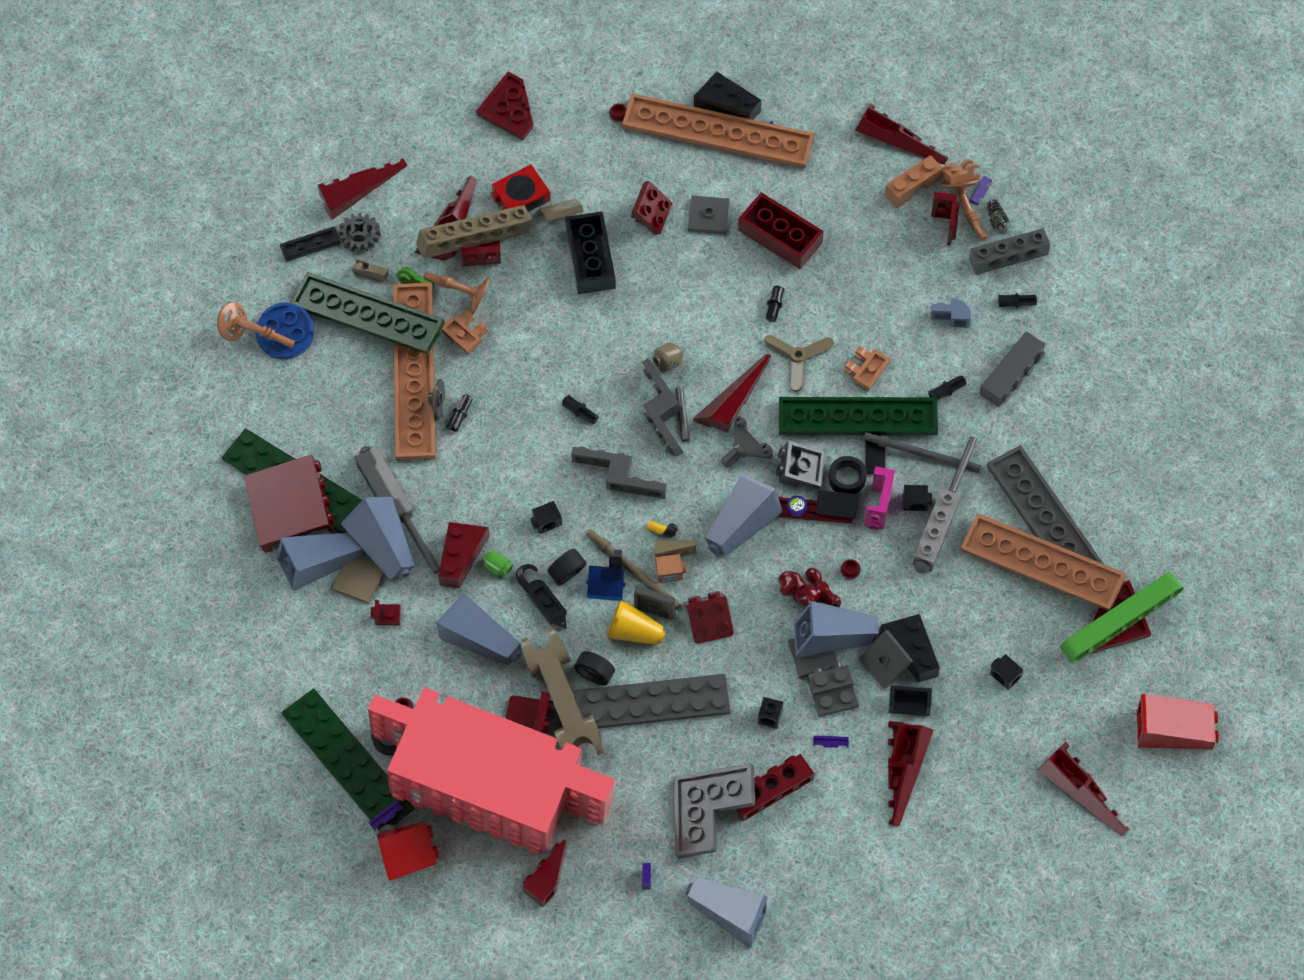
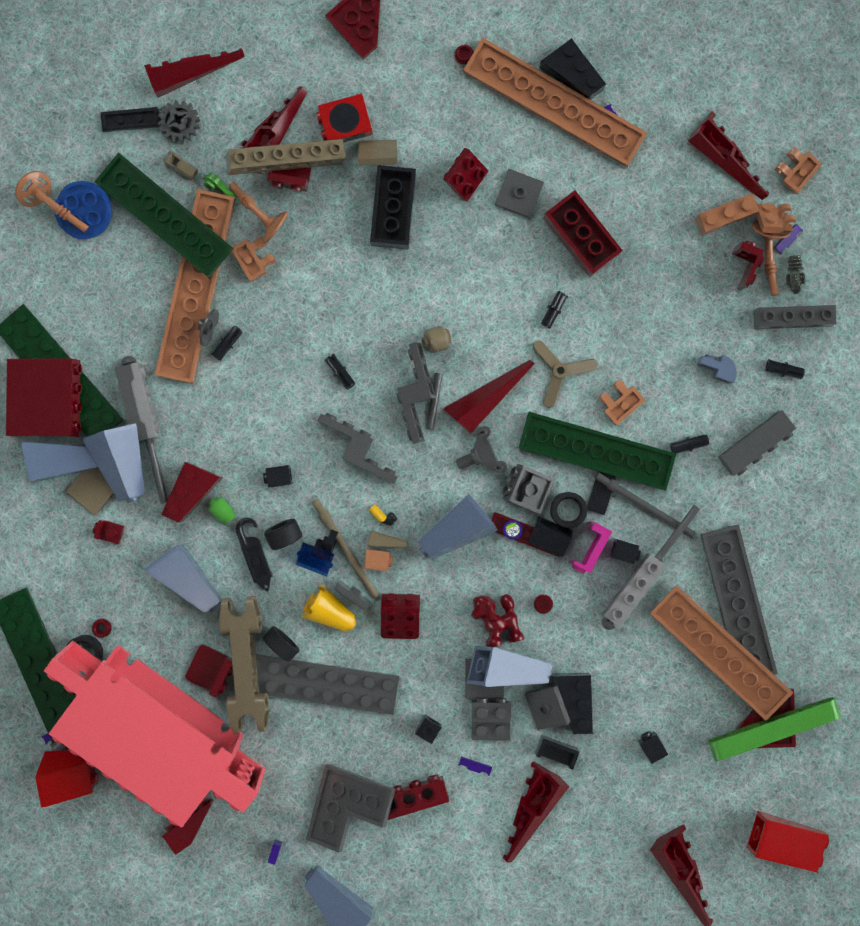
camera: 10 degrees right, 25 degrees up
(972, 132) = (802, 171): none -> nougat plate

